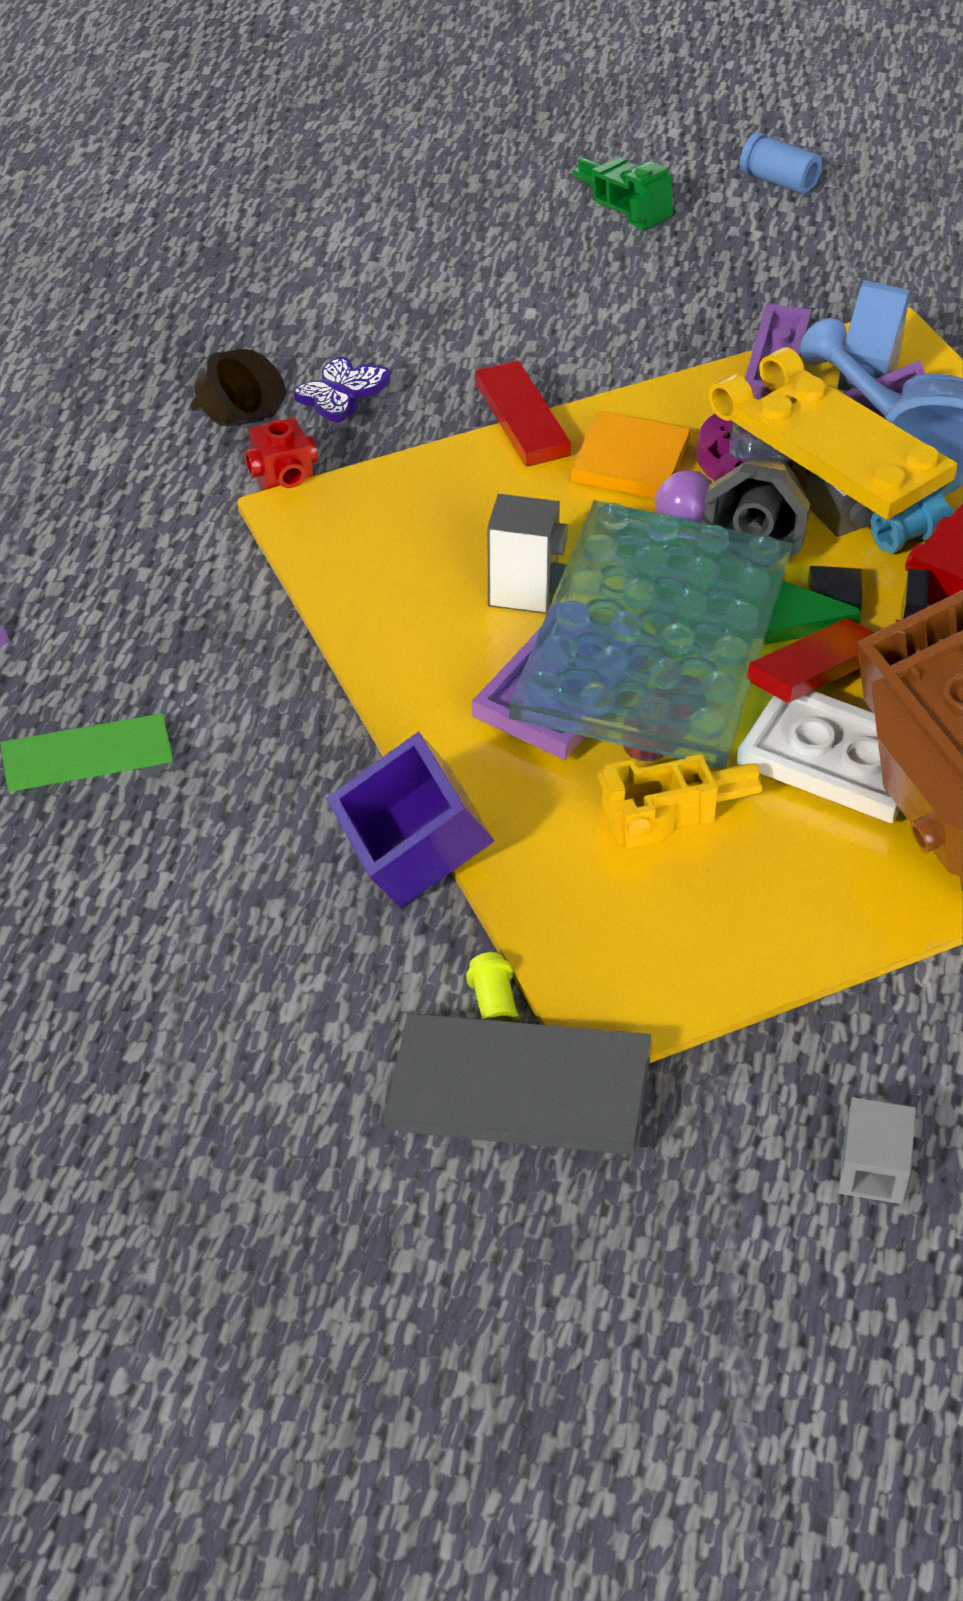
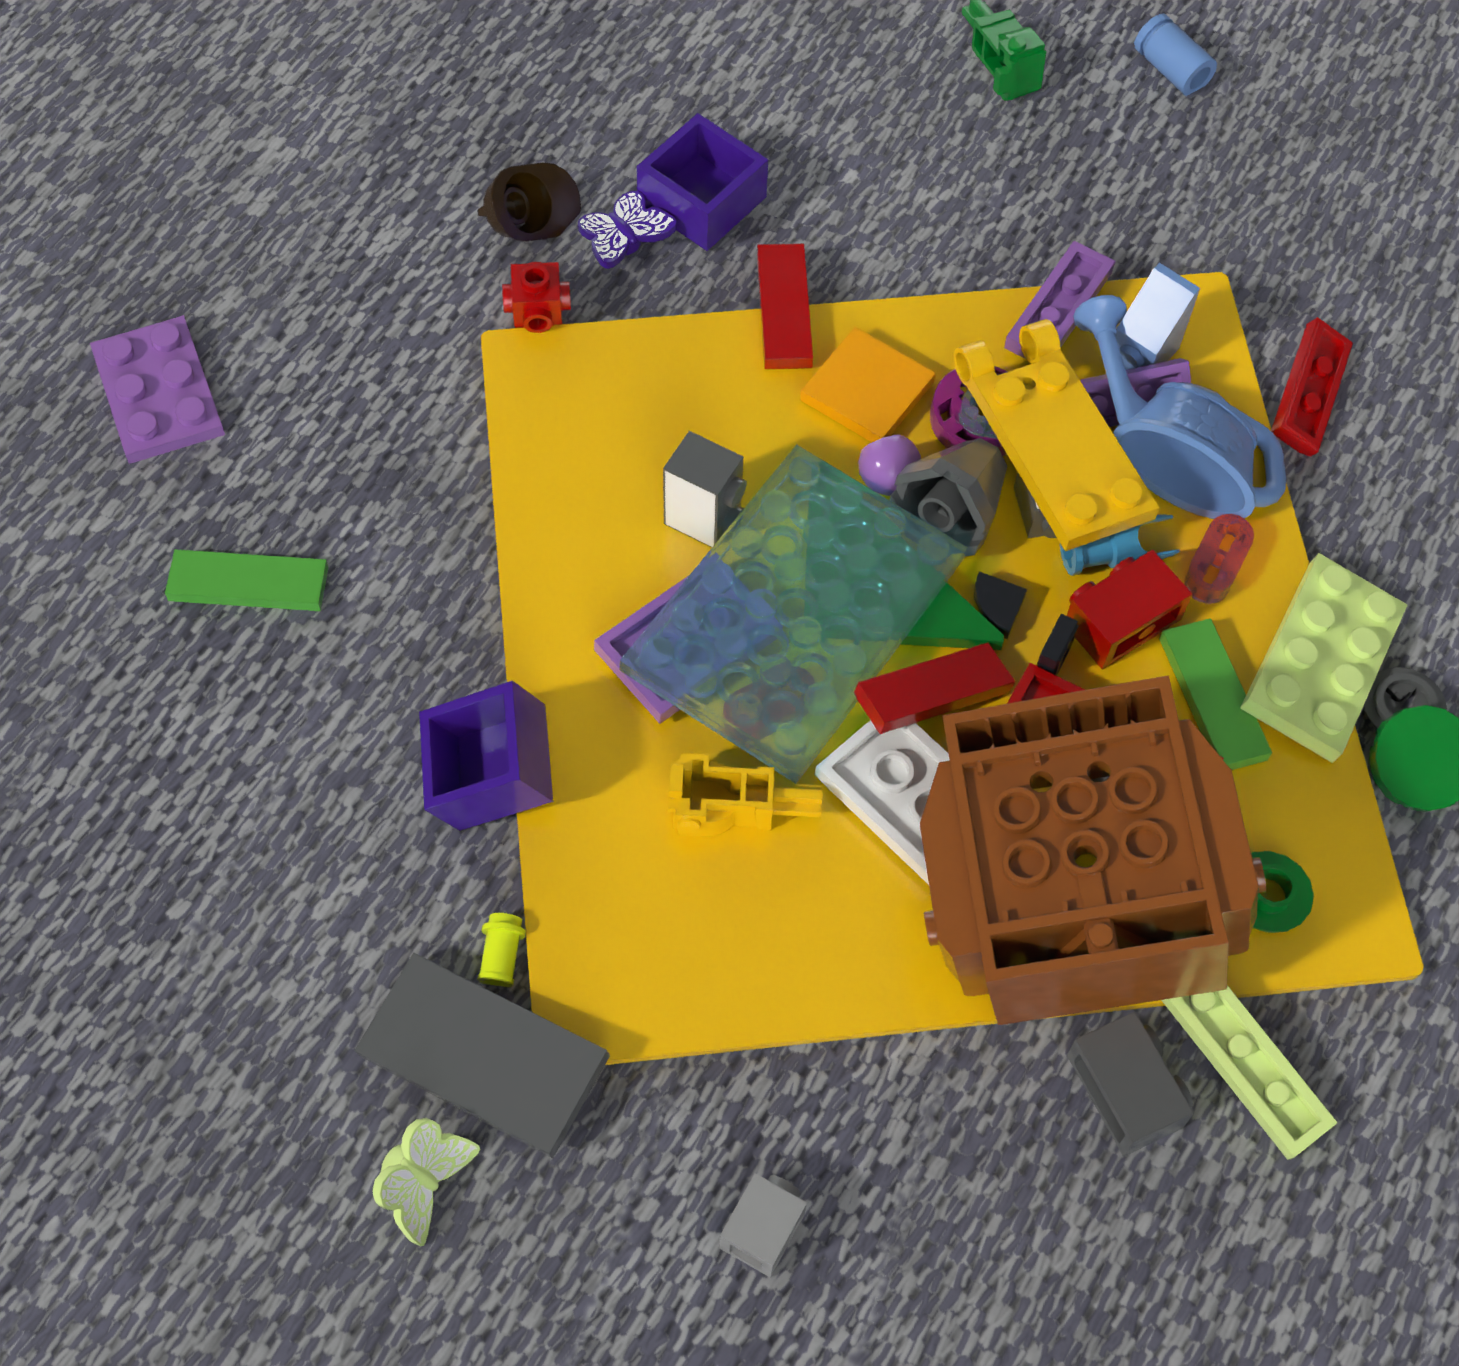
camera: 15 degrees right, 15 degrees up
(403, 330) = (703, 180): none -> dark purple piece
(500, 1202) = (413, 1173): none -> yellowish green animal

